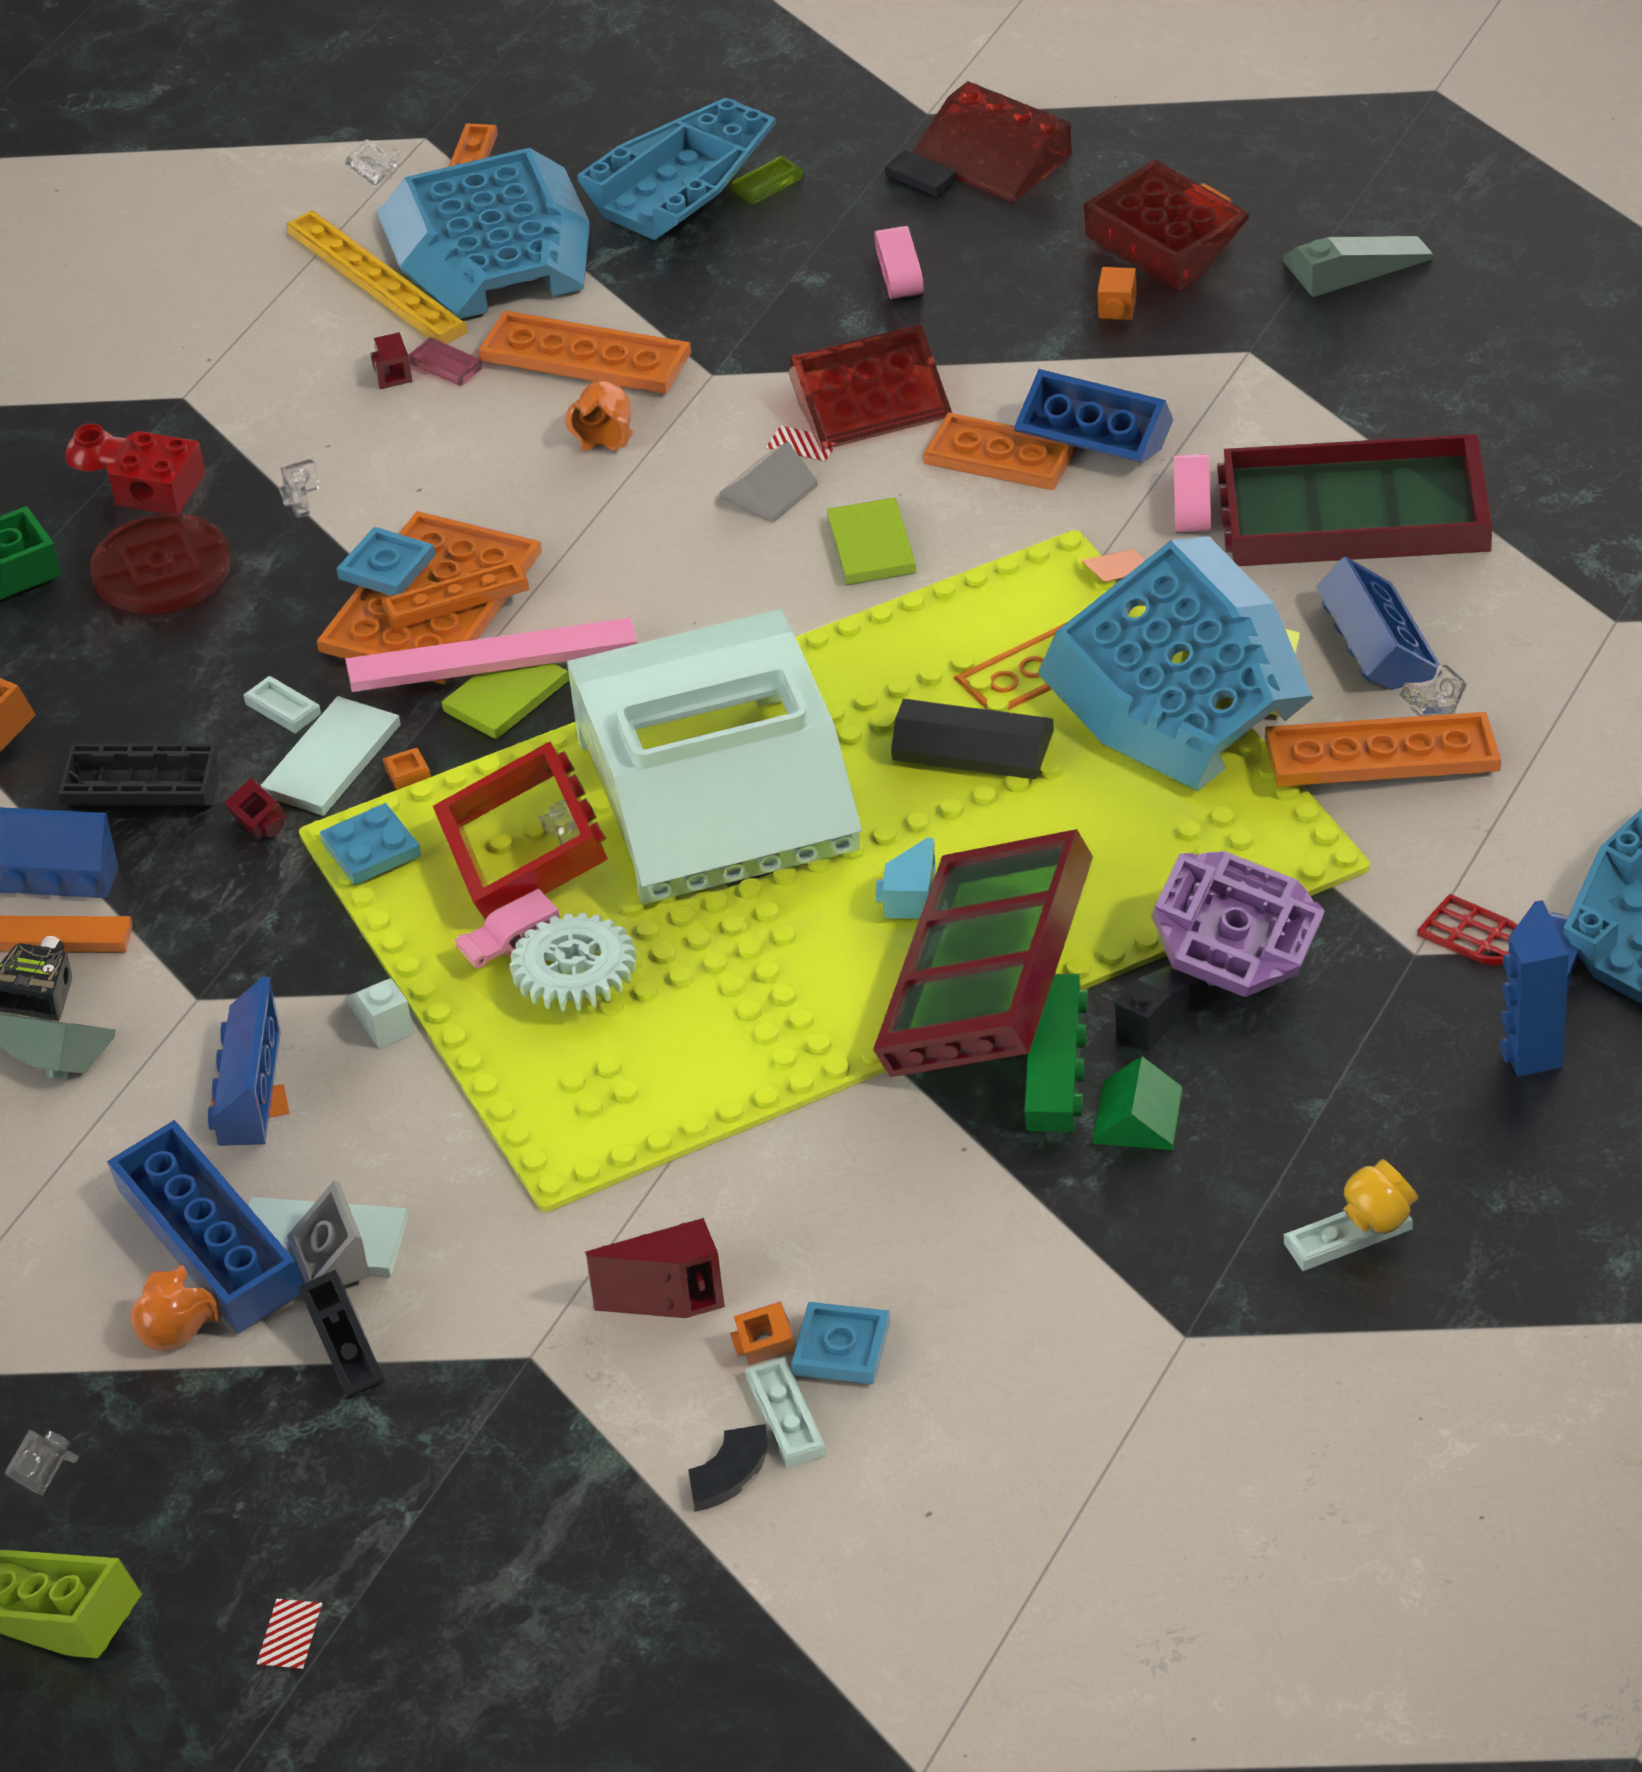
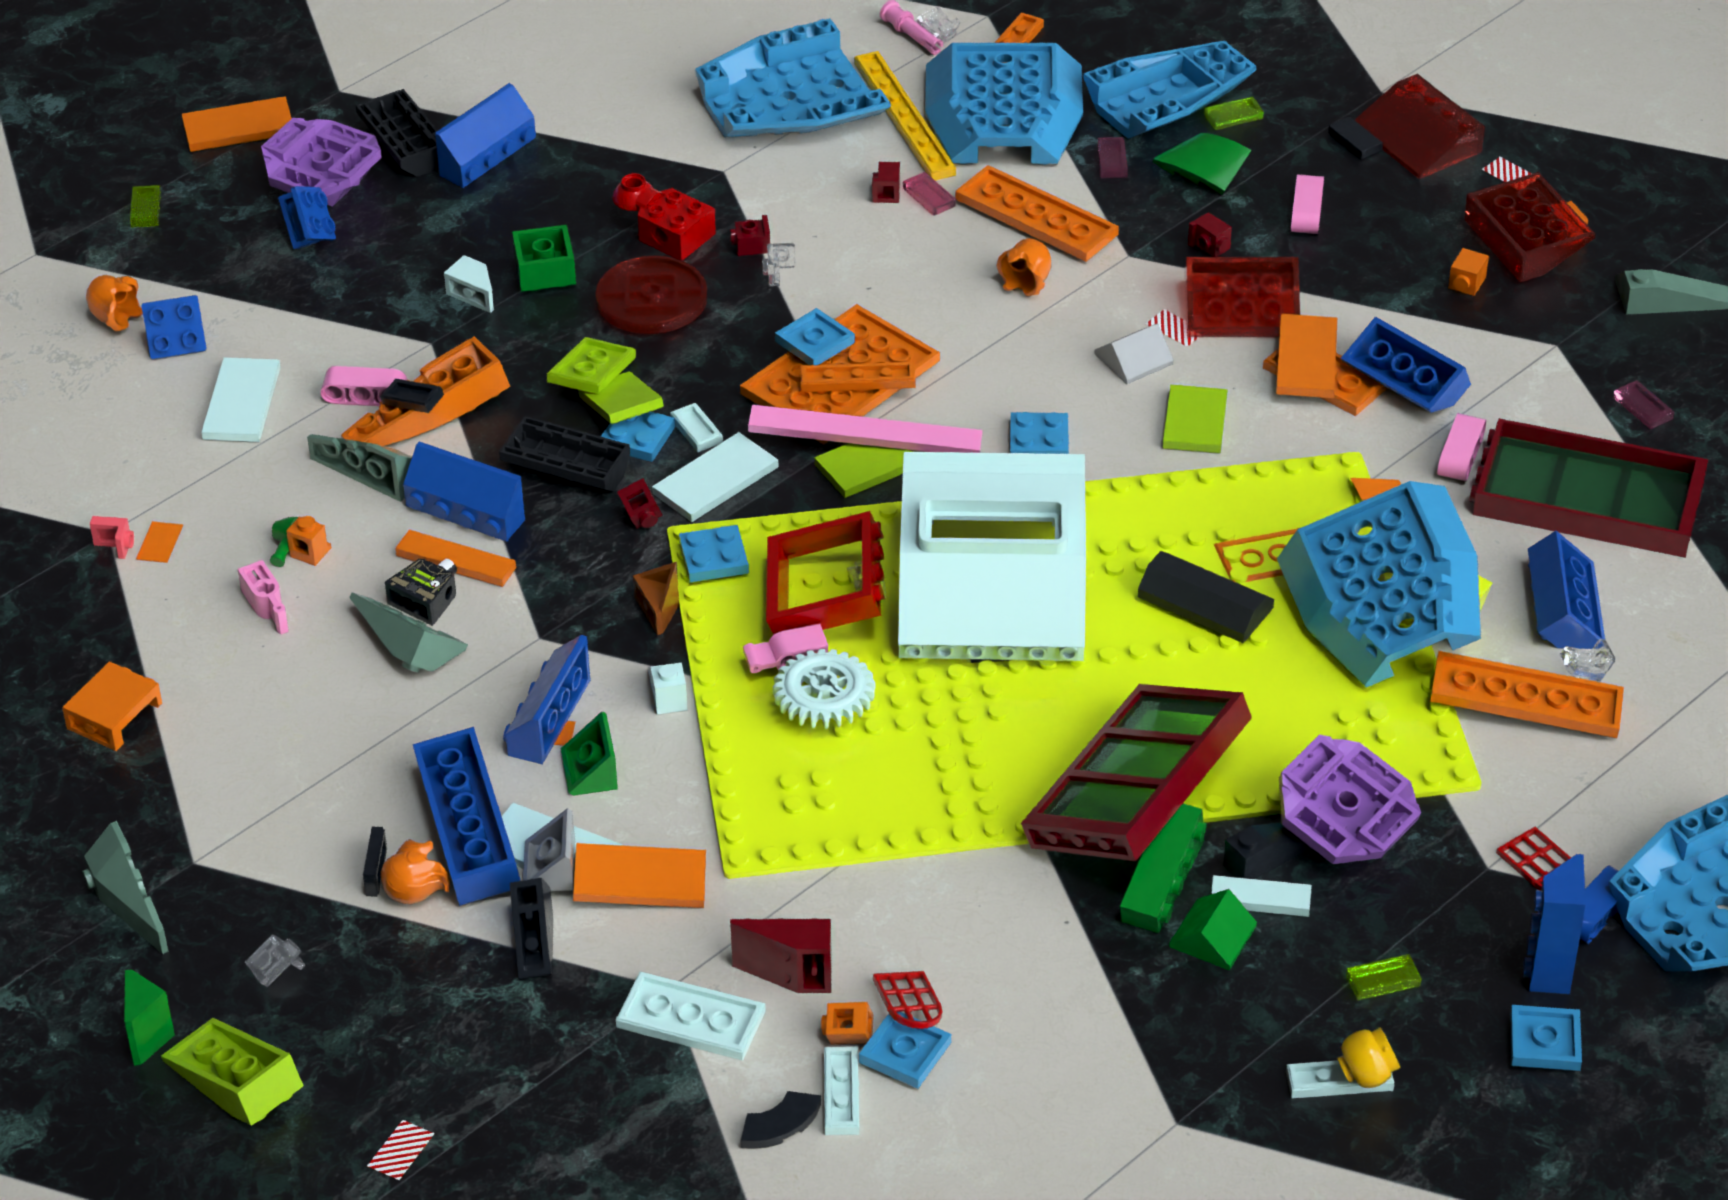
camera: 15 degrees right, 0 degrees up
(114, 1311) = (374, 861): none -> black tile
(124, 664) = (591, 365): none -> lime tile
(178, 692) = (623, 399): none -> lime tile
(182, 278) = (752, 84): none -> dark azure wedge
(218, 723) = (643, 432): none -> dark azure plate
(254, 464) = (751, 236): none -> dark red brick
(323, 909) = (658, 595): none -> dark orange slope
(326, 1119) = (590, 759): none -> green slope
(330, 169) = (904, 22): none -> bright pink pin
(406, 768) = (767, 502): orange tile -> none
(443, 1237) = (639, 875): none -> orange tile
(571, 1379) = (690, 1015): none -> light aqua tile
(645, 265) = (1112, 157): none -> clear pink tile
(695, 604) = (1039, 433): none -> dark azure plate
(759, 240) = (1205, 159): none -> green slope
(801, 326) = (1210, 234): none -> dark red brick
(835, 1309) = (910, 1022): none -> red window
(908, 881) = (1105, 695): medium azure slope -> none
(973, 435) = (1307, 356): none -> orange tile
(1109, 168) = (1505, 170): none -> sticker
(1182, 1053) = (1267, 895): none -> light aqua tile
(1350, 1107) = (1383, 977): none -> clear neon green tile
(1375, 392) = (1643, 404): none -> clear pink tile
(1559, 1121) = (1545, 1037): none -> dark azure plate

